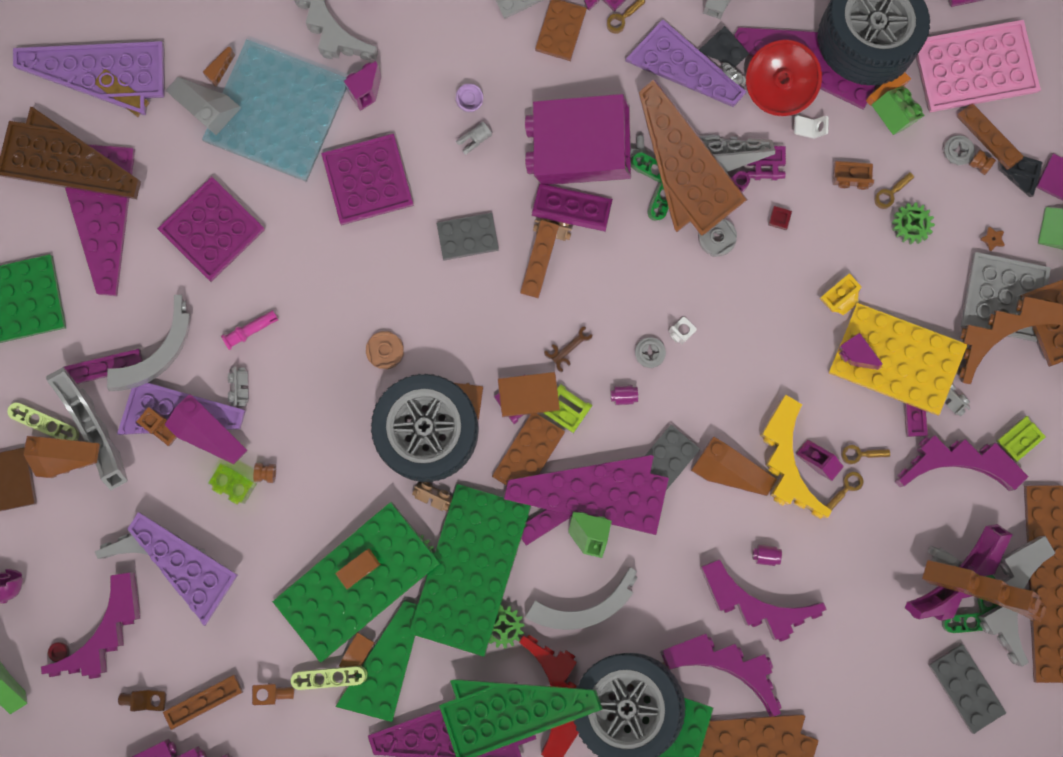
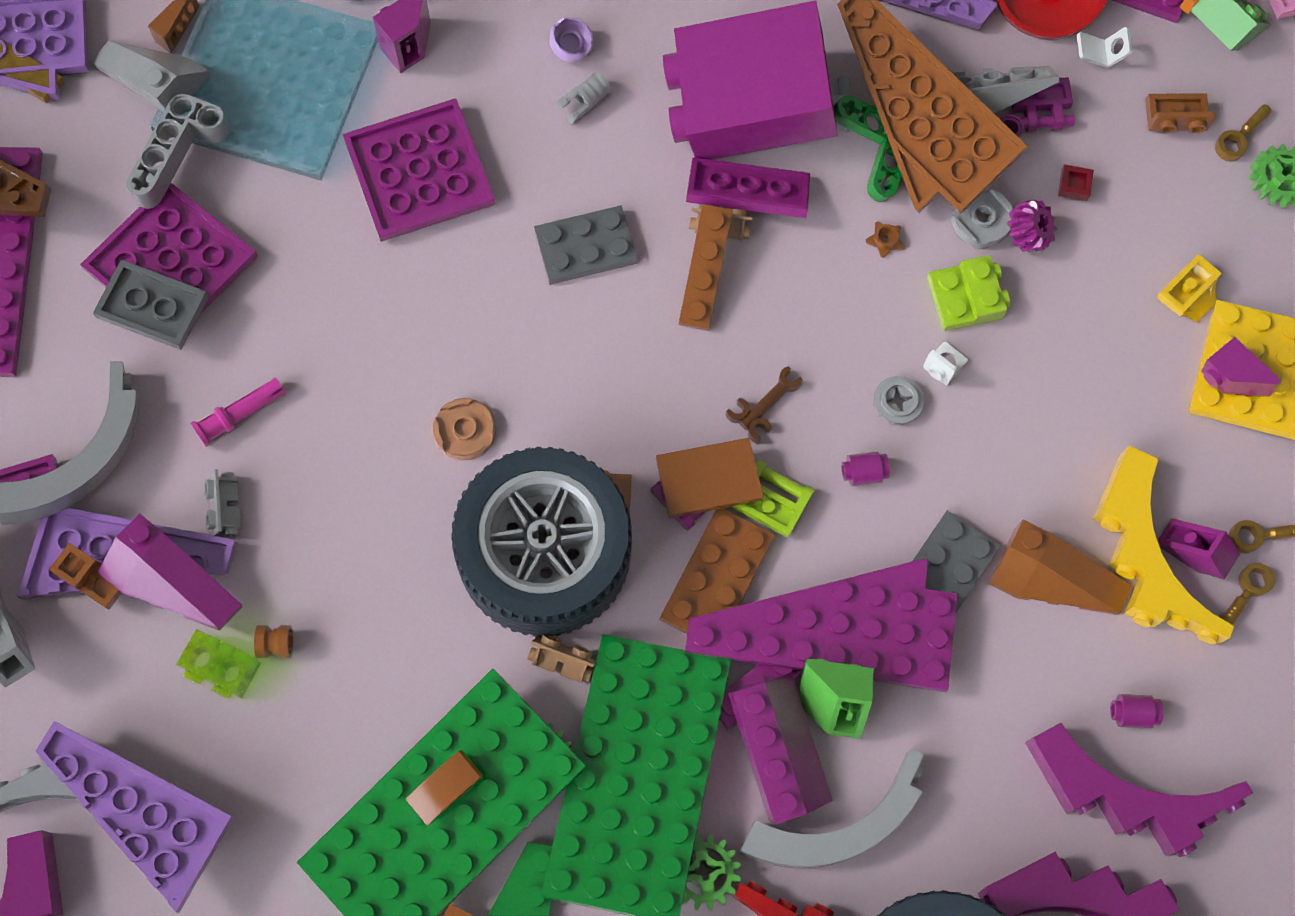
camera: 10 degrees left, 10 degrees down
(199, 259) = (151, 304): none -> dark grey plate
(216, 160) = (150, 182): none -> light grey beam
(555, 560) = (780, 748): none -> magenta slope
(655, 241) = (889, 231): none -> dark orange plate
(702, 286) = (969, 293): none -> lime plate
(747, 246) = (1032, 226): none -> magenta gear

